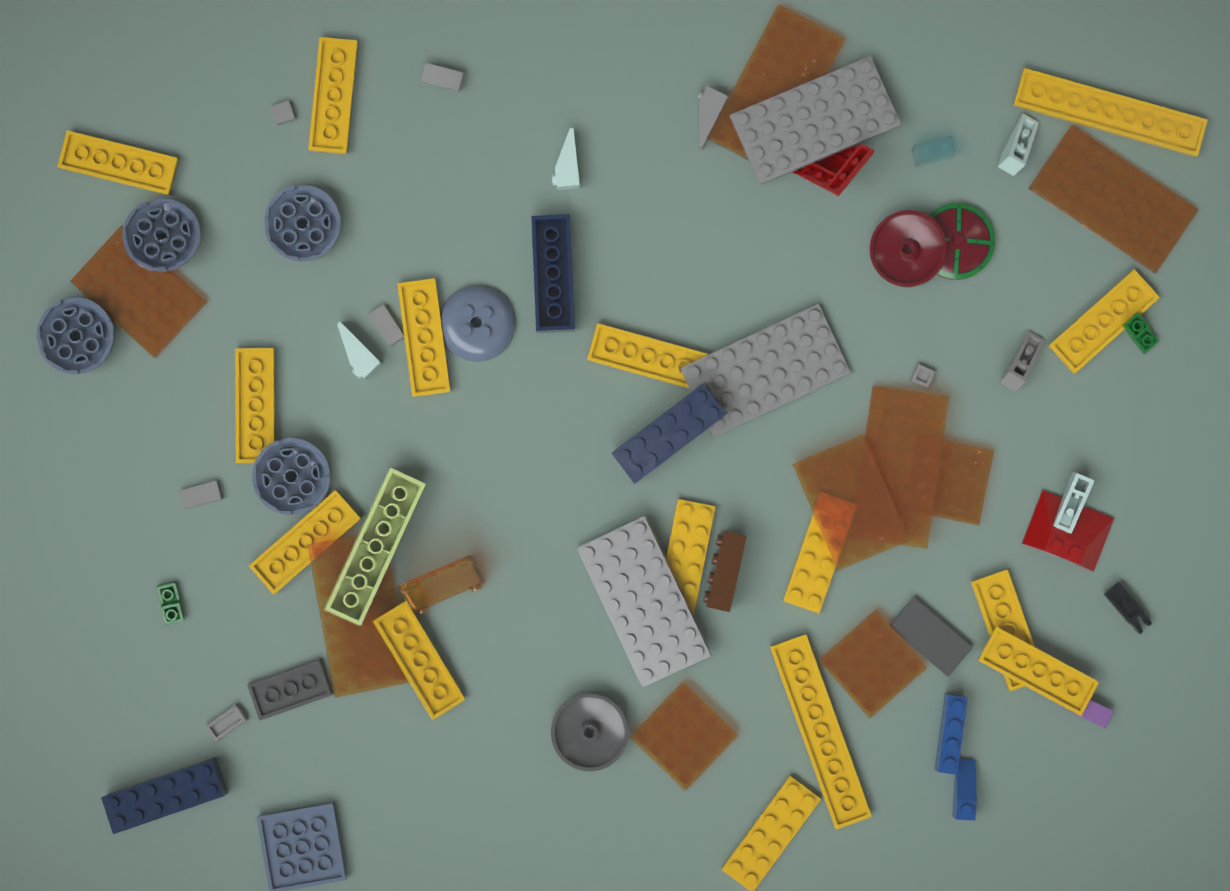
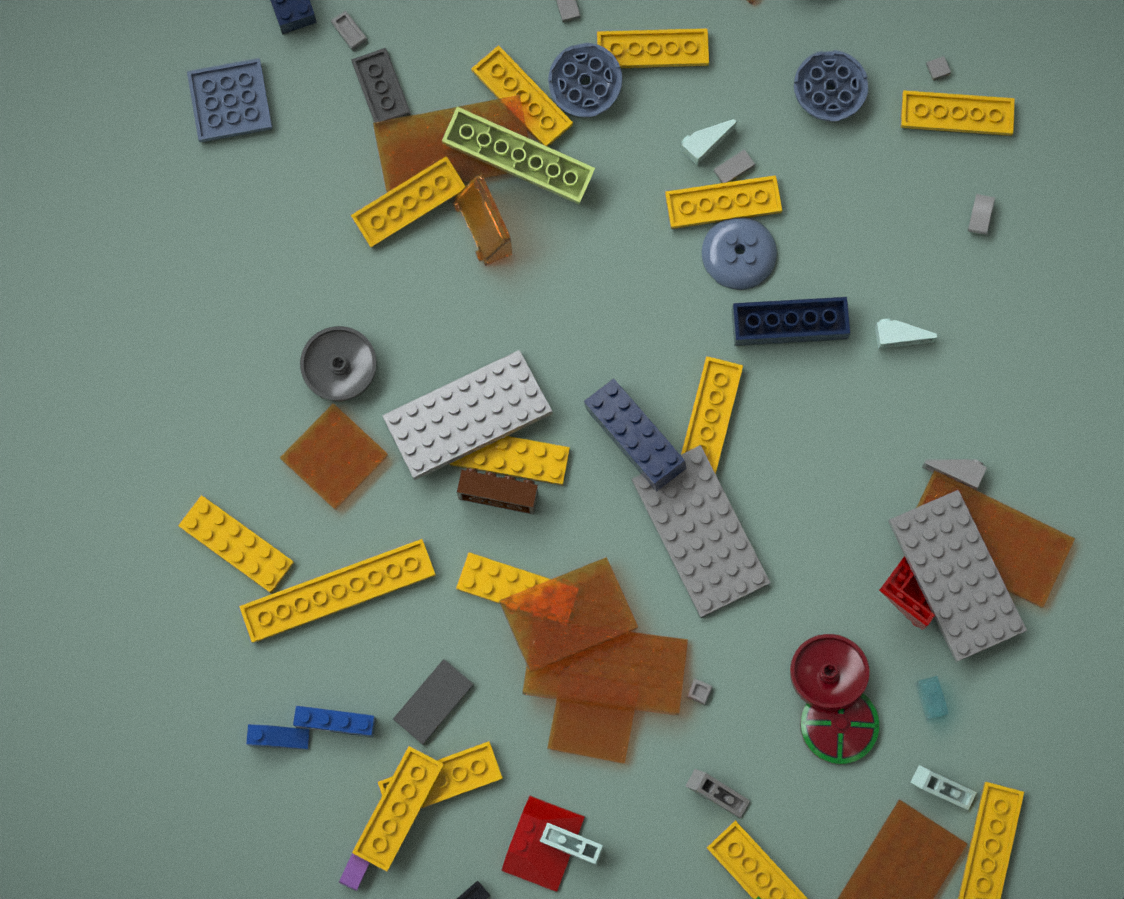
camera: 90 degrees right, 10 degrees down
(872, 663) = (405, 642): clear orange plate -> none

